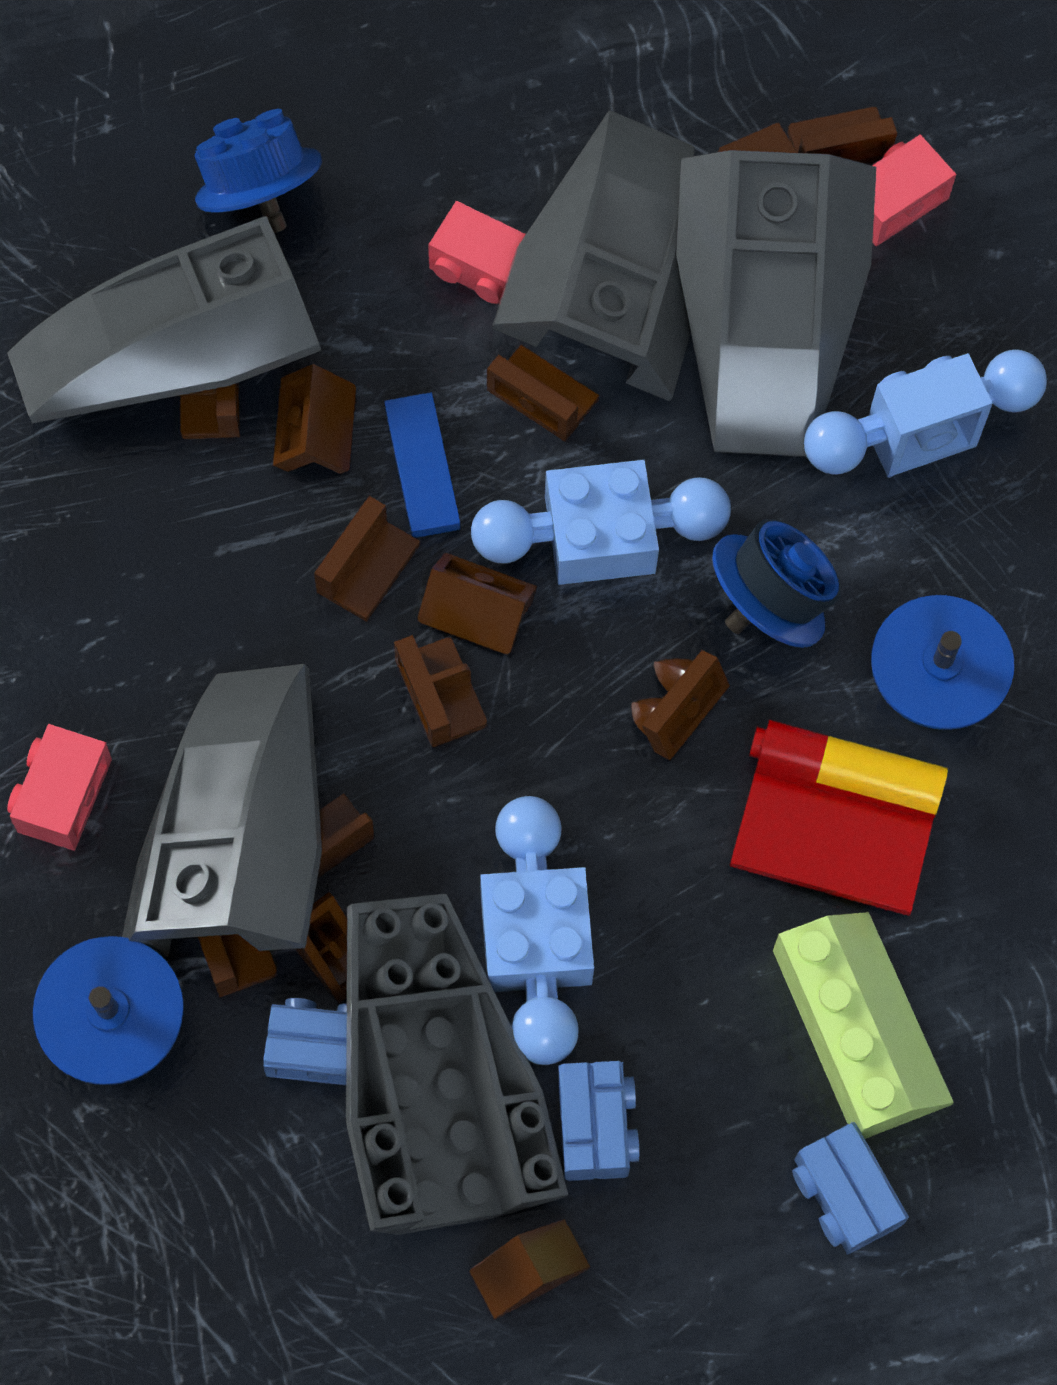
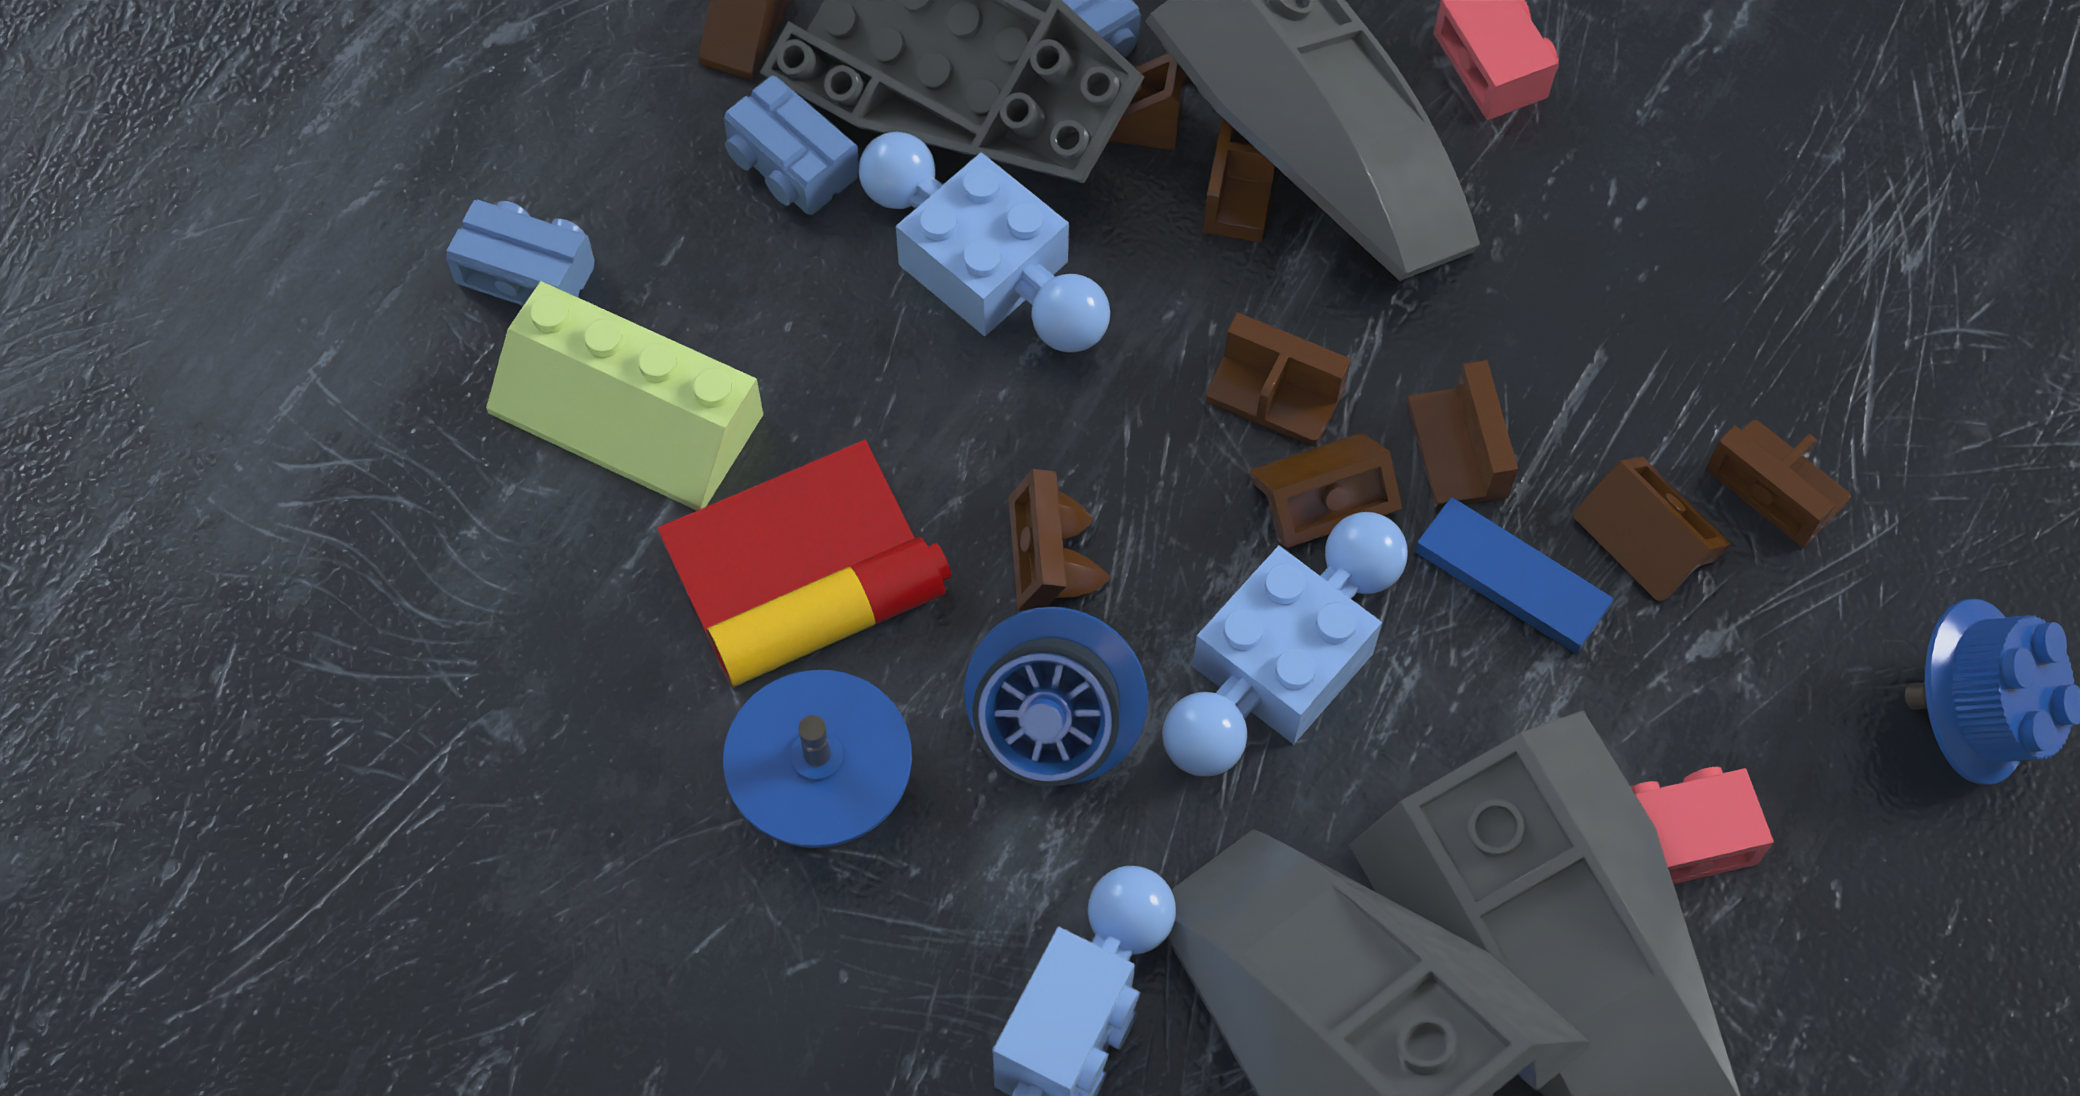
camera: 140 degrees right, 5 degrees down
(168, 328) = (1874, 477): dark grey wedge -> none
(540, 391) = (1463, 727): reddish brown panel -> none

